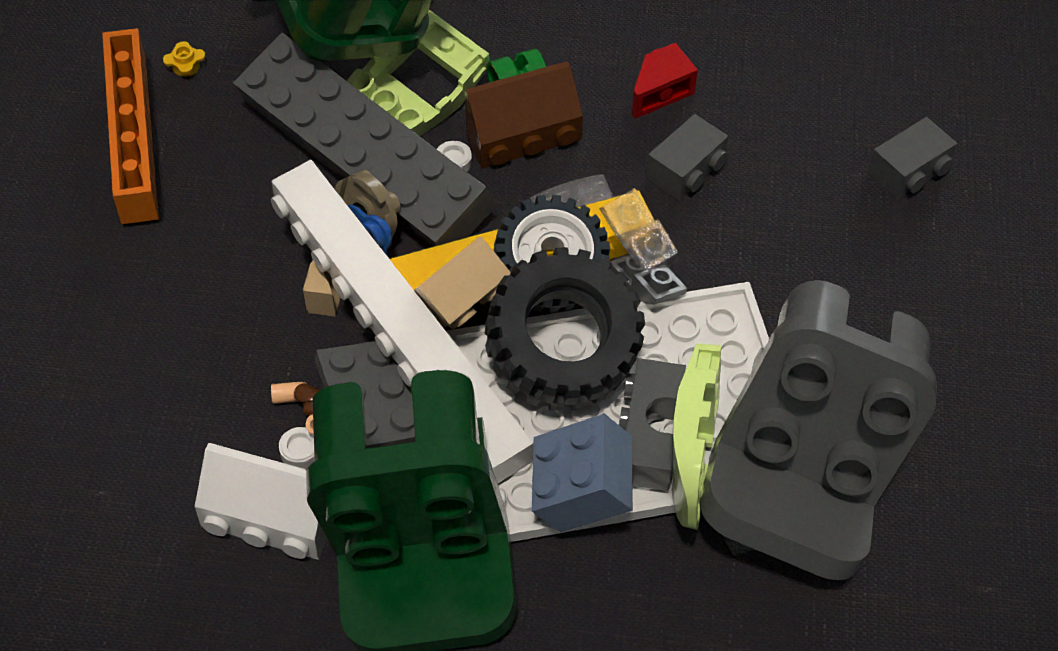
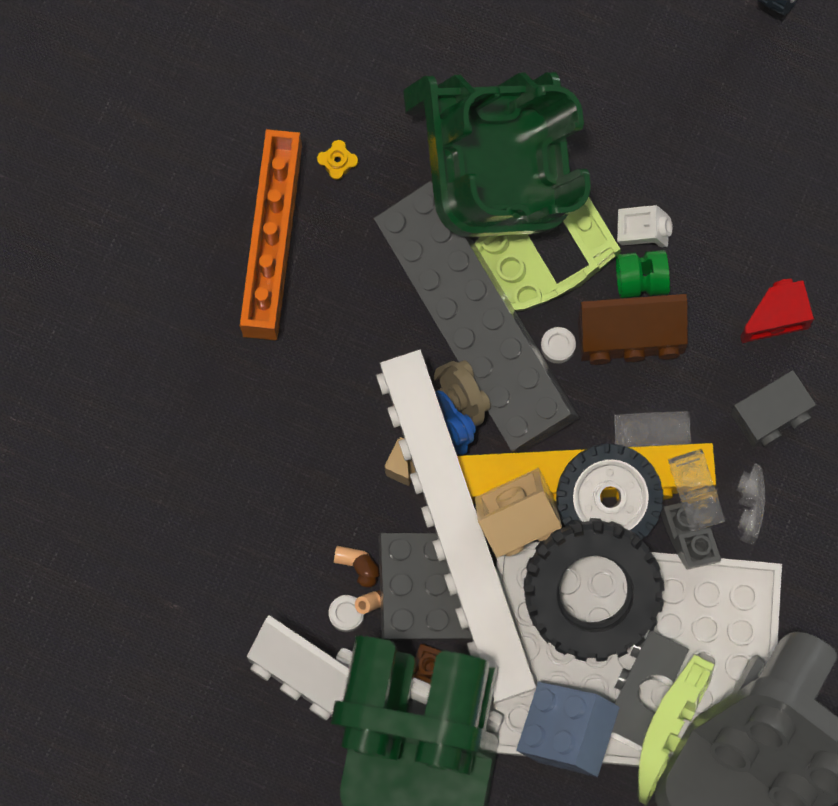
camera: 20 degrees right, 20 degrees up
(505, 39) = (643, 226): none -> white bracket
(698, 238) = (753, 496): none -> clear slope

